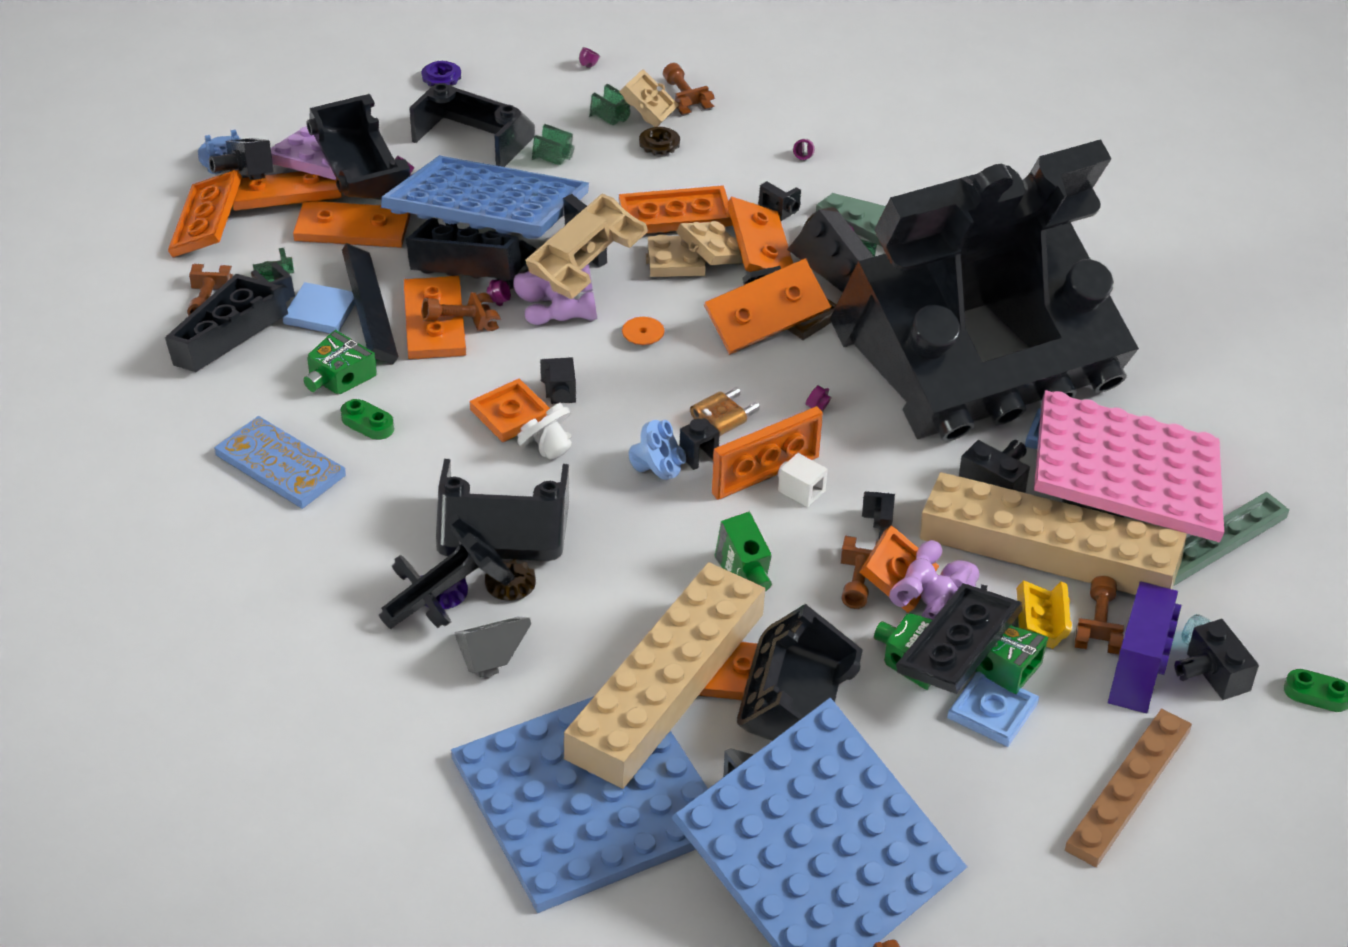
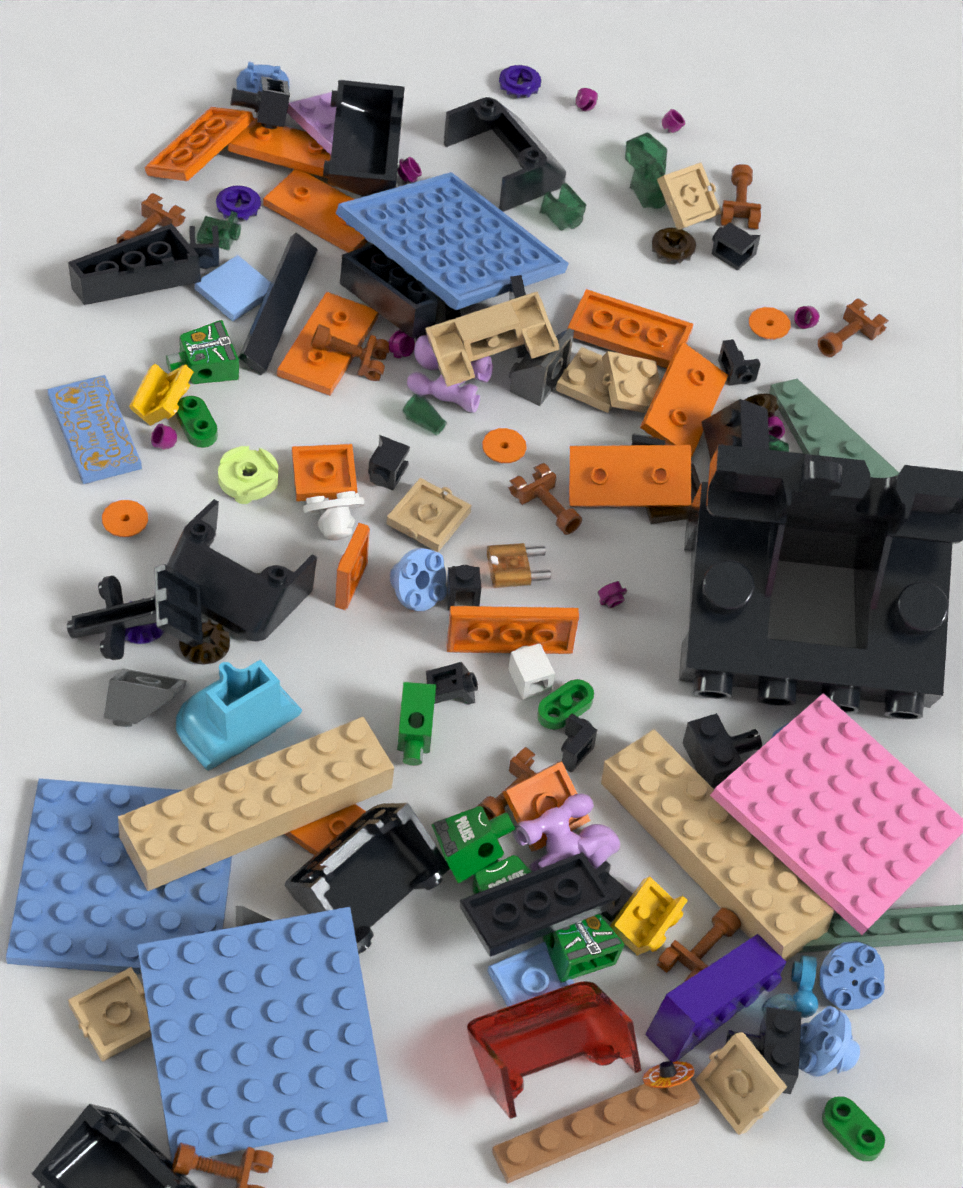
camera: 25 degrees right, 10 degrees up
(279, 239) = (229, 197): none -> dark purple gear
(325, 409) = (160, 393): none -> yellow bracket
(349, 440) = (163, 437): none -> magenta hinge
(364, 516) = (125, 518): none -> orange piece
(433, 447) = (252, 487): none -> yellowish green plate
(506, 66) = (586, 99): none -> magenta hinge
(559, 334) = (422, 413): none -> clear green cone
(584, 615) = (234, 713): none -> medium azure piece
(585, 83) = (645, 152): none -> clear green window
(598, 463) = (352, 566): none -> orange plate
(622, 404) = (429, 514): none -> tan plate
(629, 267) = (538, 376): none -> dark grey slope
(672, 900) = (113, 1014): none -> tan plate
(696, 348) = (545, 480): none -> dark orange bar
(708, 121) = (734, 245): none -> black window
(745, 504) = (453, 682): none -> black bracket
(778, 164) = (769, 323): none -> orange piece
(838, 158) = (831, 343): none -> dark orange bar
(848, 492) = (562, 703): none -> green plate
(868, 616) = (471, 840): none -> green torso
(1044, 725) = (547, 1033): none -> clear red windscreen
(1155, 718) = (668, 1074): none -> piece
(1195, 598) = (804, 974): none -> dark azure plate
(1219, 693) = (740, 1083): none -> tan plate
(1230, 579) = (866, 971): none -> medium blue plate
(1258, 629) = (827, 1044): none -> light blue plate

